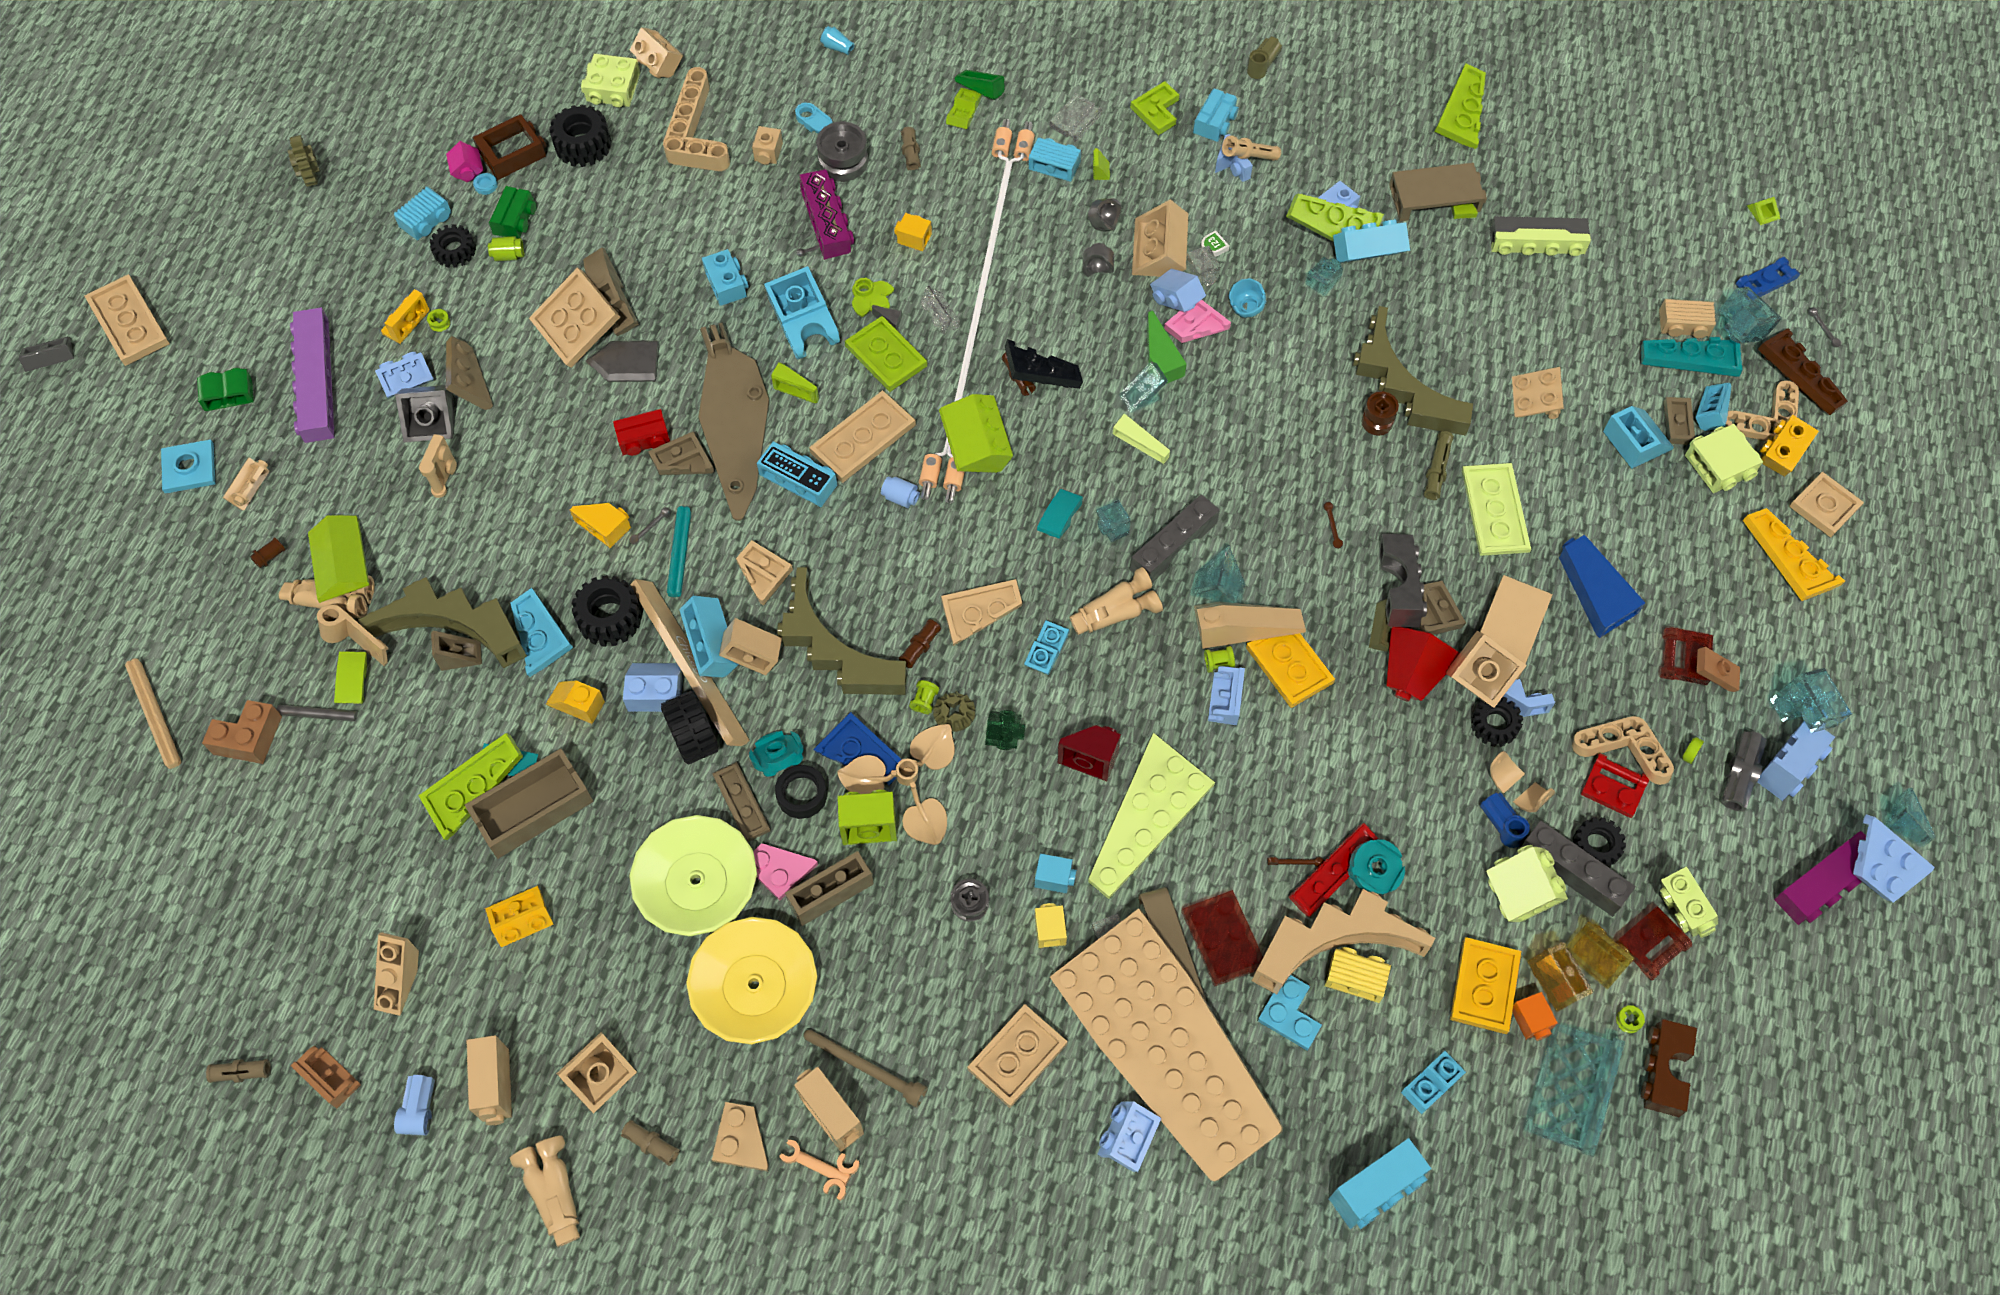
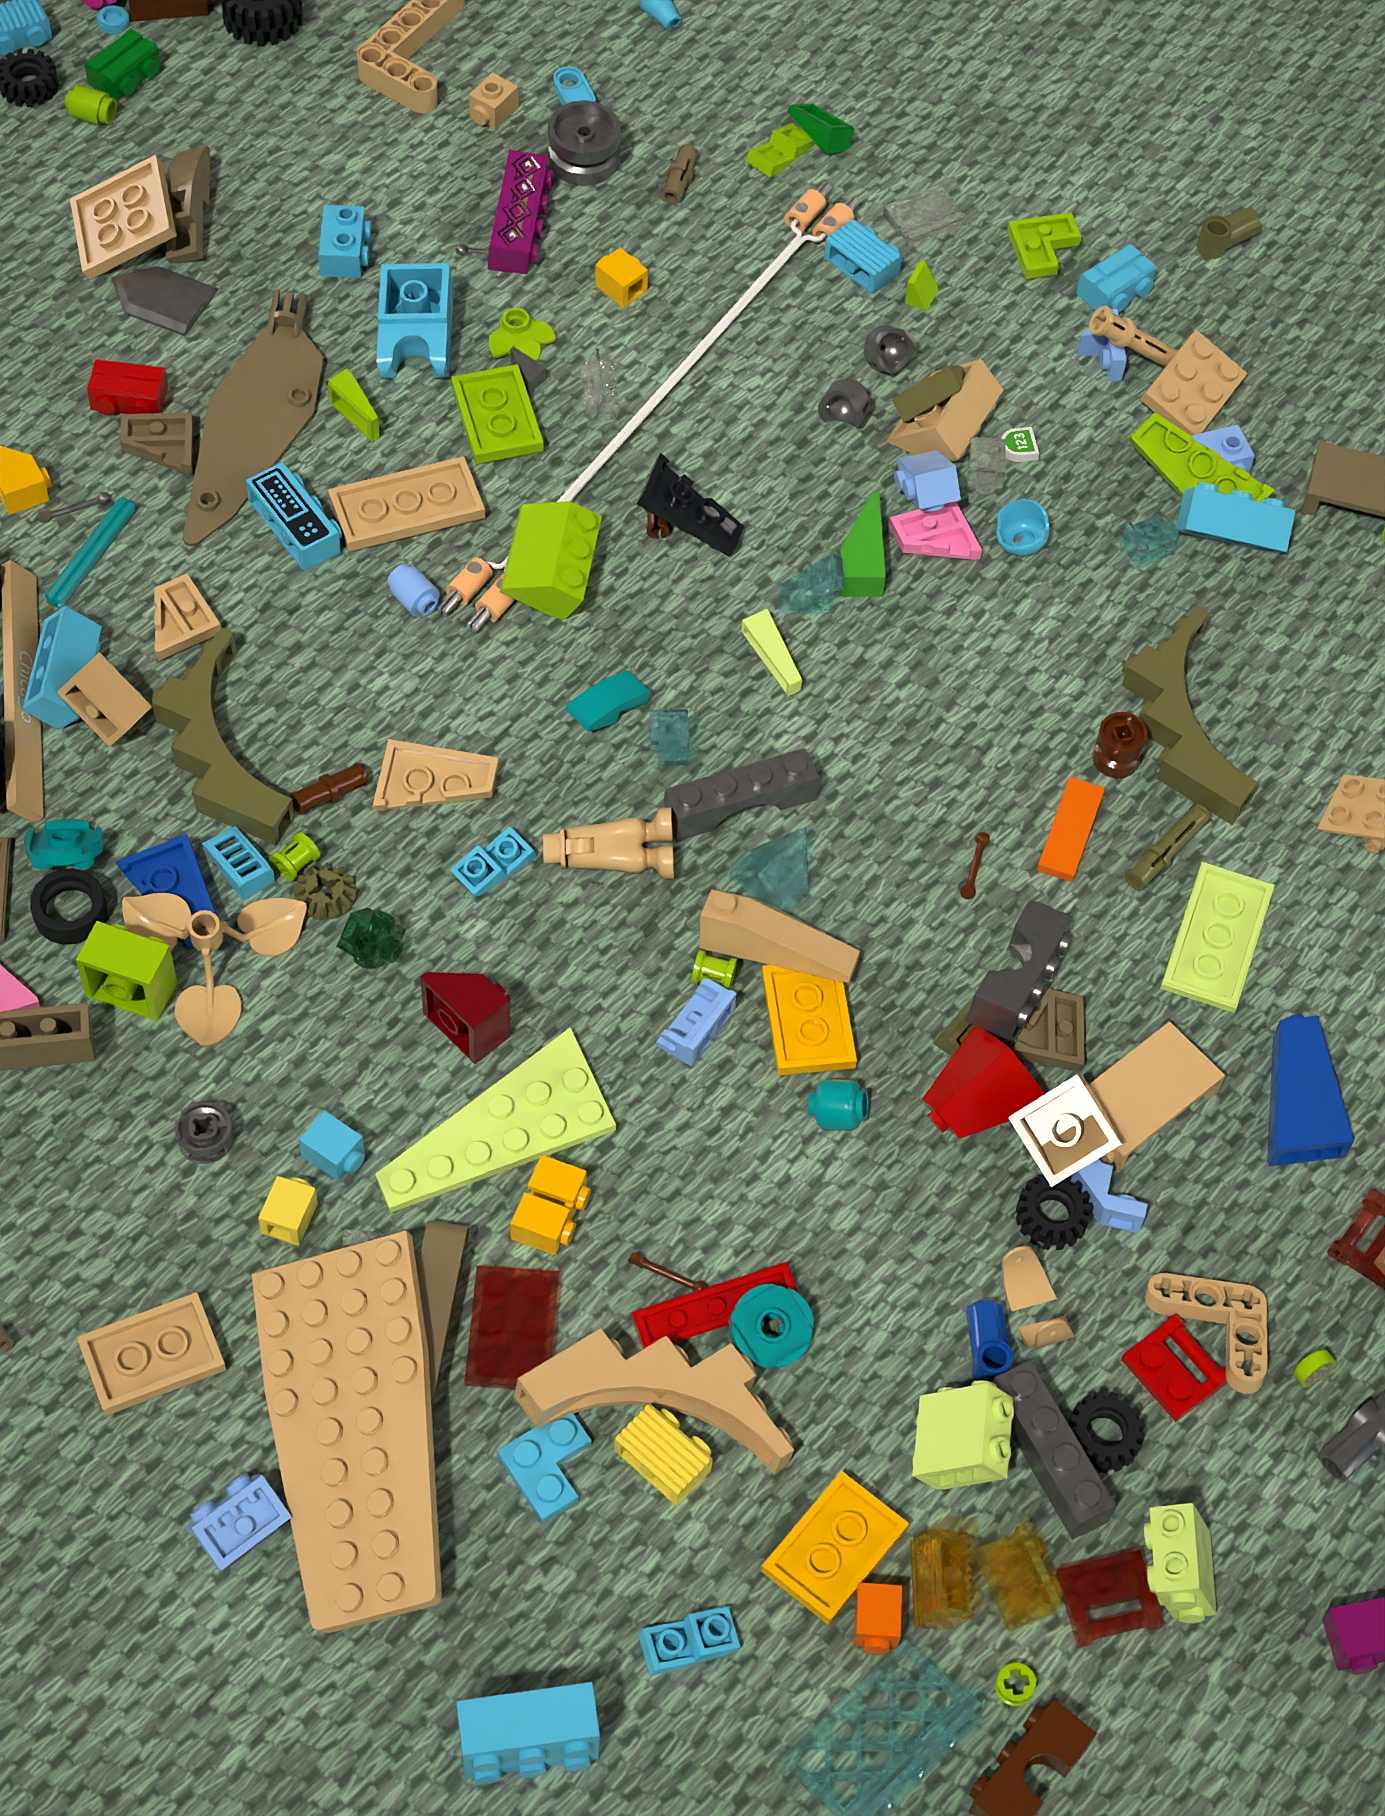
camera: 20 degrees right, 5 degrees down
(892, 726) = (253, 881): none -> medium azure slope
(1147, 233) = (929, 392): none -> olive slope
(1205, 851) = (547, 1212): none -> yellow piece
(1297, 164) = (1194, 385): none -> tan plate
(1339, 711) = (838, 1104): none -> teal head
(1376, 478) = (1070, 829): none -> orange tile

